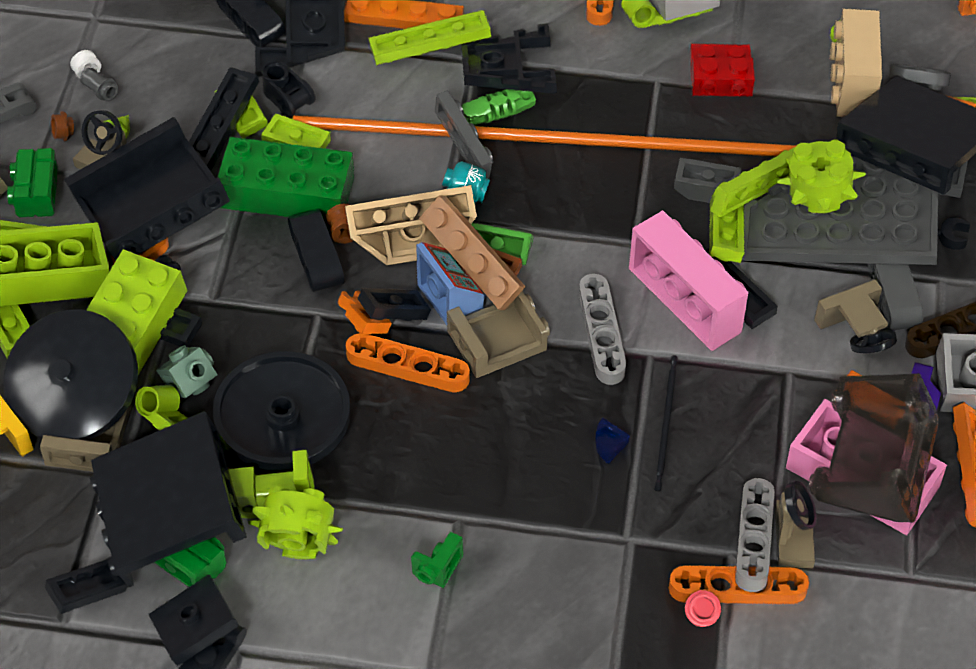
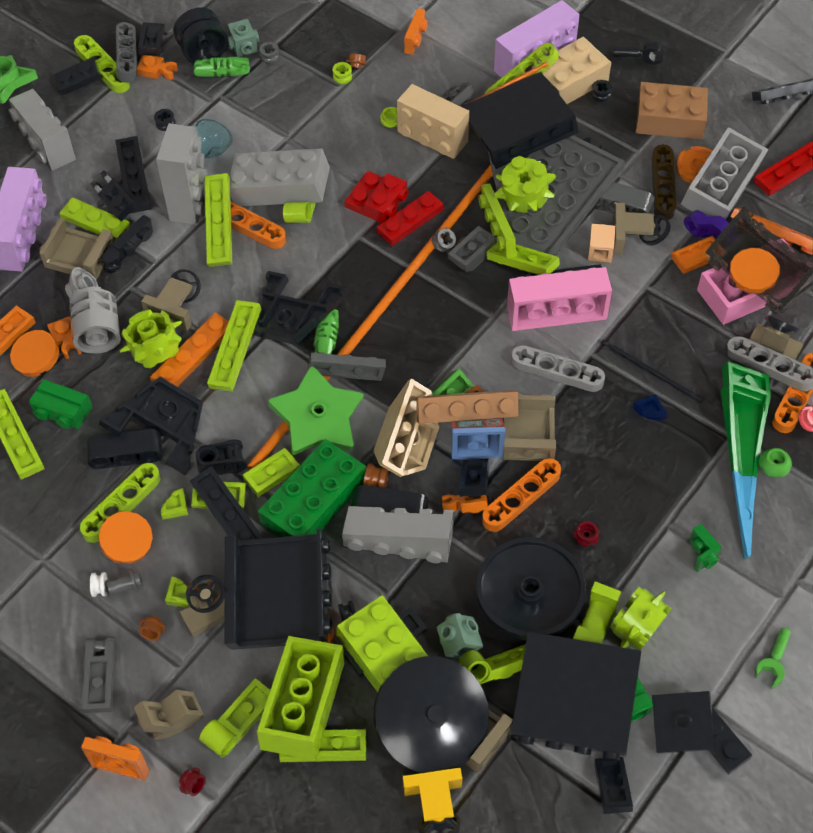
camera: 60 degrees left, 5 degrees up
(34, 182) = (201, 670): green brick -> none
(148, 60) = (125, 537): none -> orange tile
(188, 44) = (117, 500): none -> lime beam
(208, 82) = (174, 505): none -> lime tile
(284, 272) = (399, 532): none -> light grey wedge
(386, 137) = (301, 409): none -> bright green plate
(392, 434) = (589, 528): none -> dark red plate
(465, 175) = (387, 385): teal head -> none
(614, 605) = (774, 469): none -> bright green plate
(662, 531) = (745, 411): none -> green plate
(708, 141) = (438, 241): none -> dark grey bush
(715, 111) = (410, 218): none -> red plate
(806, 291) = (601, 243): none -> light nougat brick
(859, 444) = (754, 270): none -> orange tile

